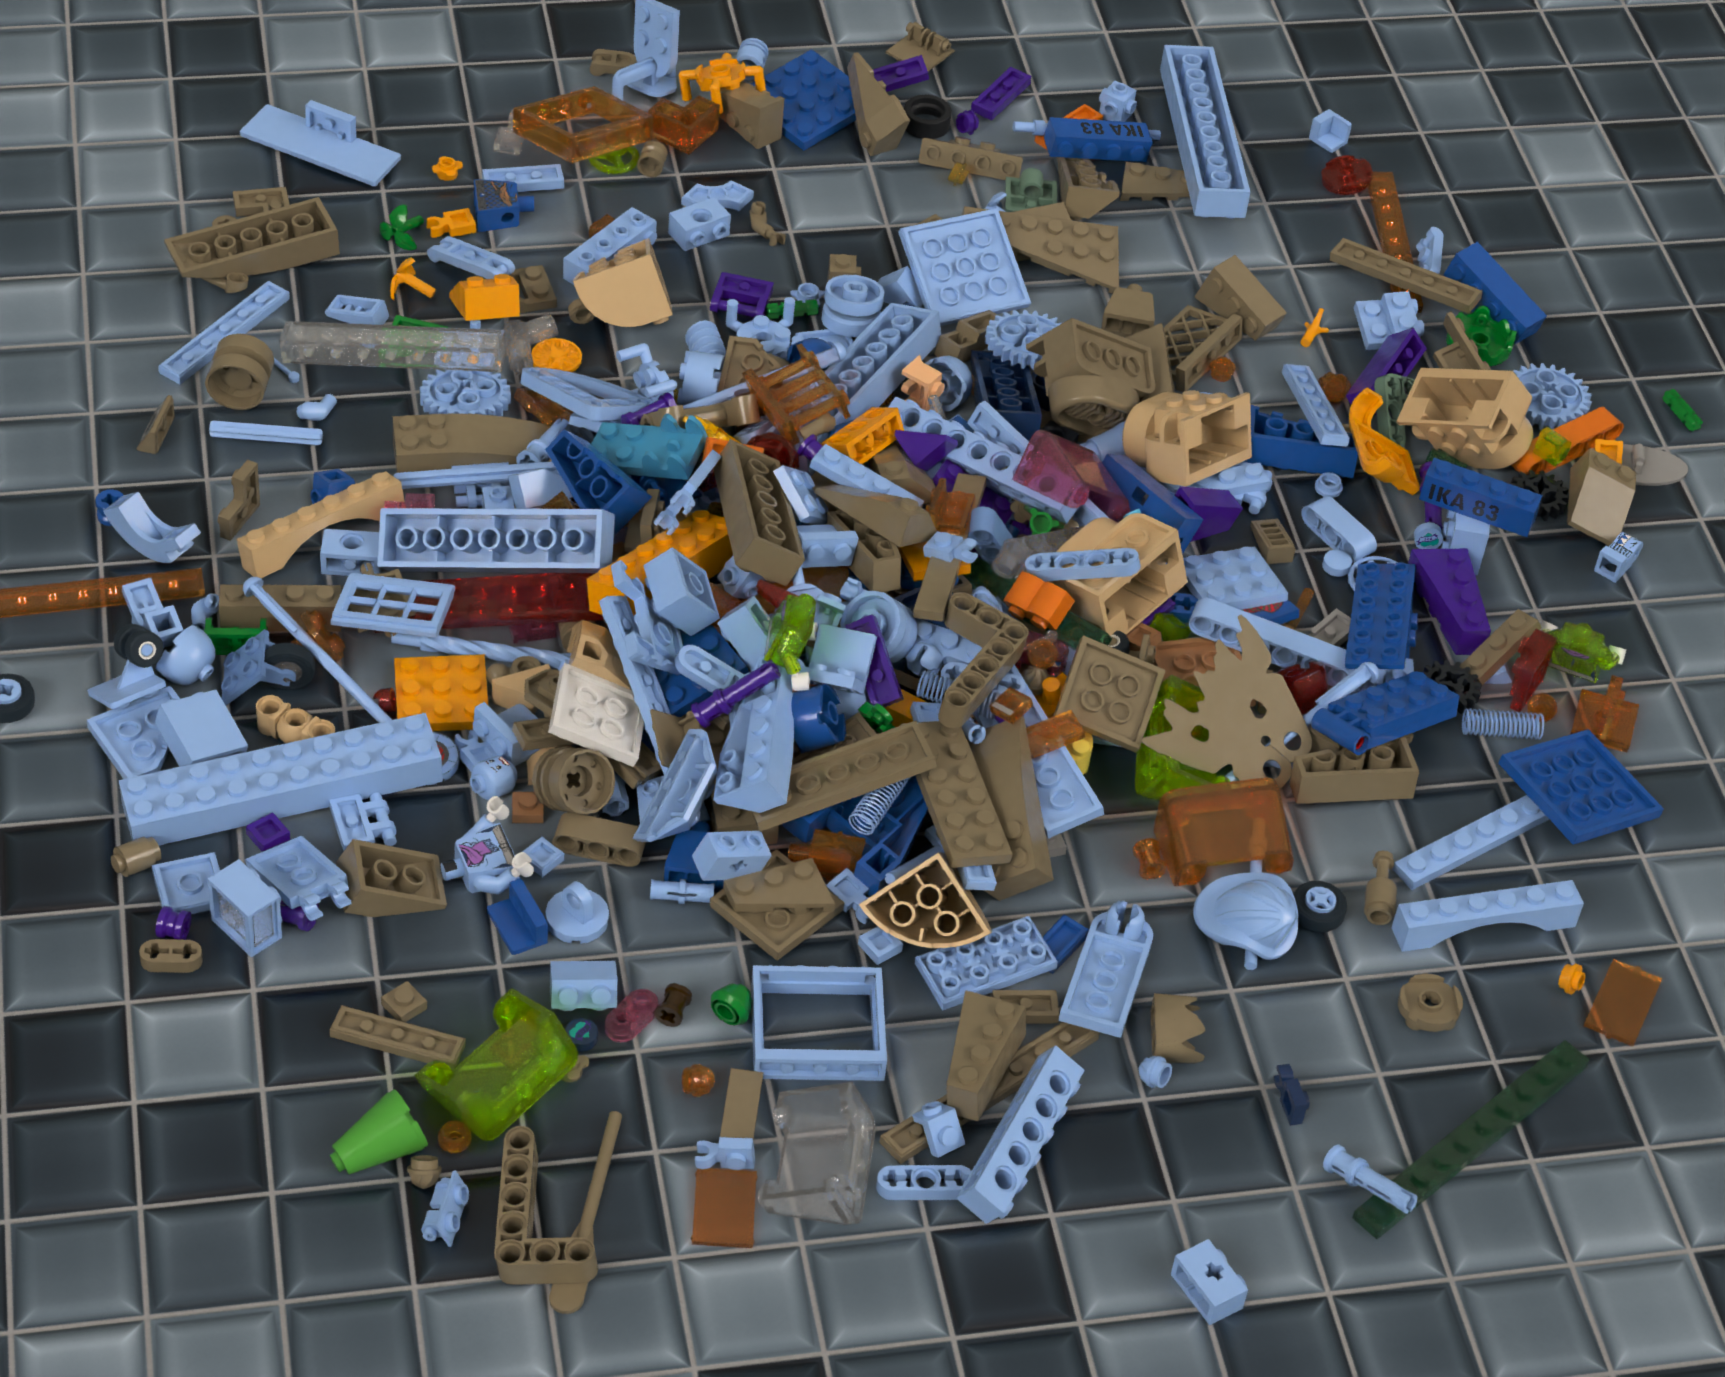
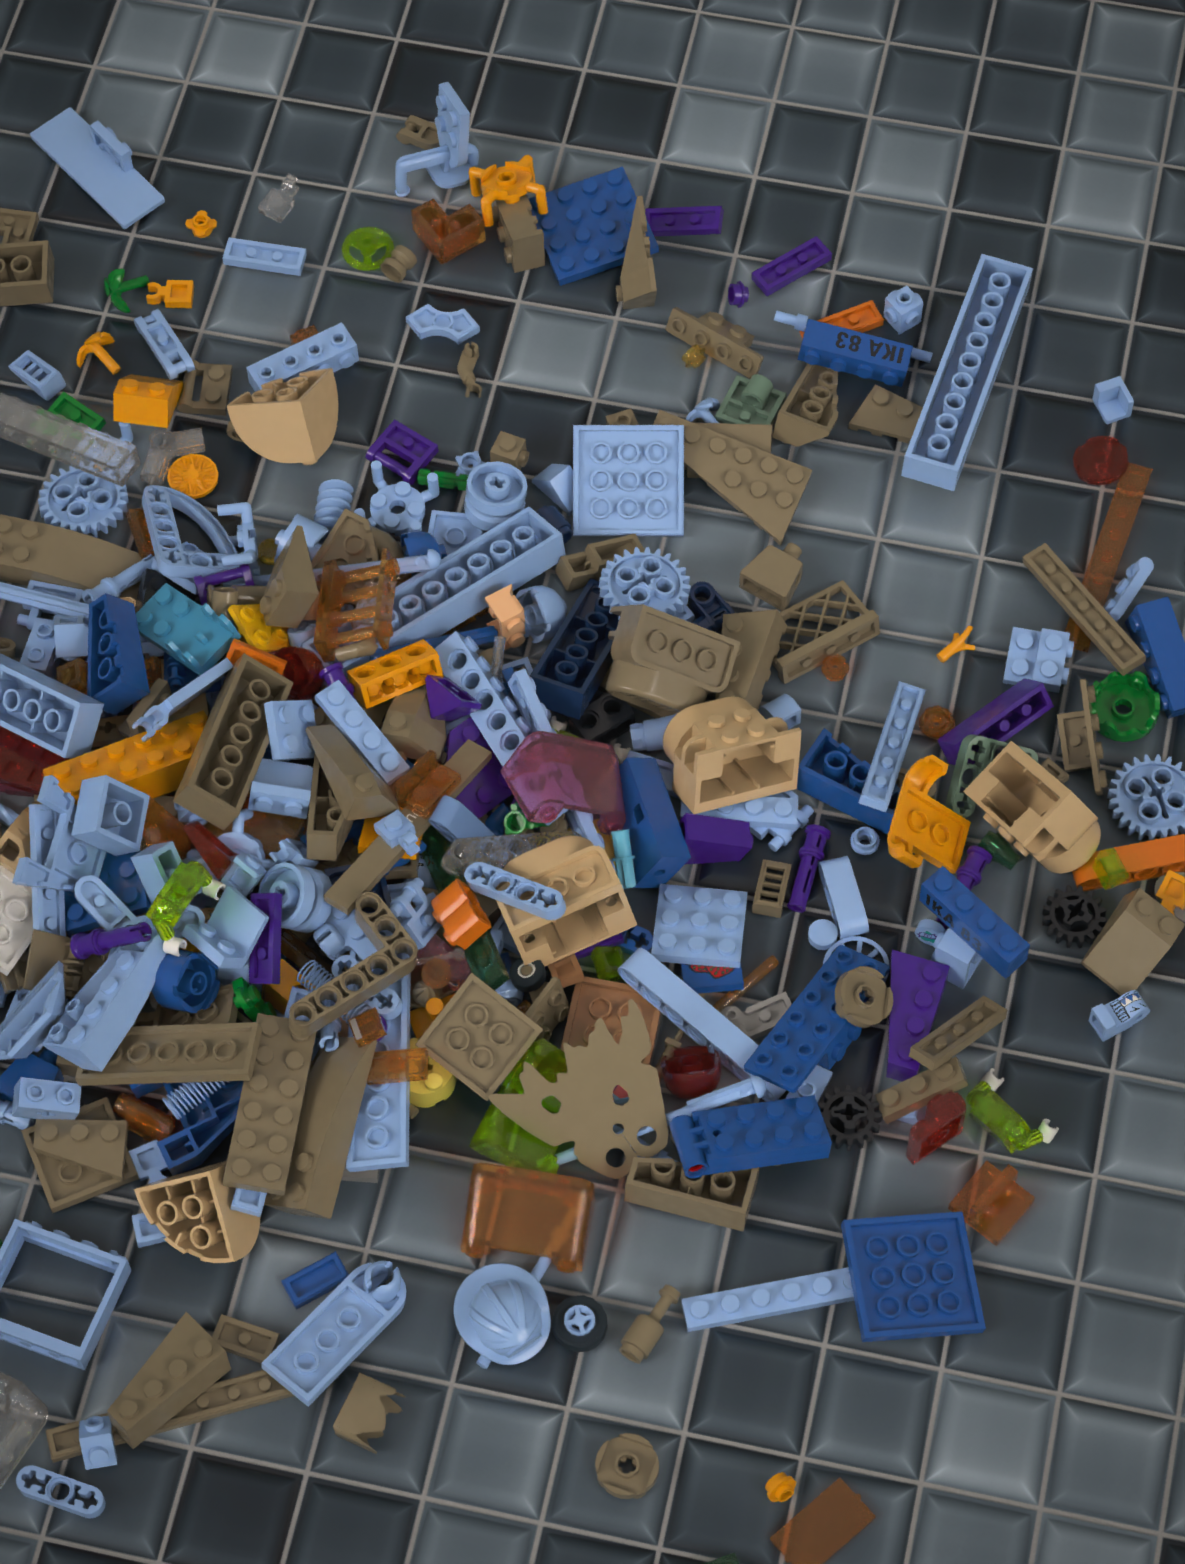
camera: 30 degrees right, 15 degrees up
(498, 204) = (224, 283): blue torso -> none
(628, 125) = (345, 236): clear orange window -> none
(699, 224) = (412, 346): light blue brick -> none
(727, 388) = (290, 585): none -> dark tan slope
(752, 53) = (557, 163): light blue piece -> none
(906, 867) = (203, 1161): light blue bar -> none
(921, 42) = (738, 190): dark tan hinge -> none
(928, 105) = (701, 261): black tyre -> none
(989, 964) = (256, 1282): light blue tile -> none
(1021, 1135) = (146, 1478): light blue brick -> none
(1149, 858) = (446, 1218): clear orange bush -> none
(1155, 1071) = (325, 1451): light blue plate -> none
(1236, 290) = (894, 592): dark tan wedge -> none
(1292, 506) = (810, 855): none -> dark purple pin
(1292, 1098) = (436, 1526): dark blue plate -> none
(1414, 585) = (849, 1002): none -> dark tan plate
(1431, 921) = (687, 1381): light blue arch -> none
(1504, 596) = (958, 1033): none -> dark tan plate
(1536, 724) = (842, 1169): light blue piece -> none
(1543, 704) = (930, 1170): clear orange plate -> none

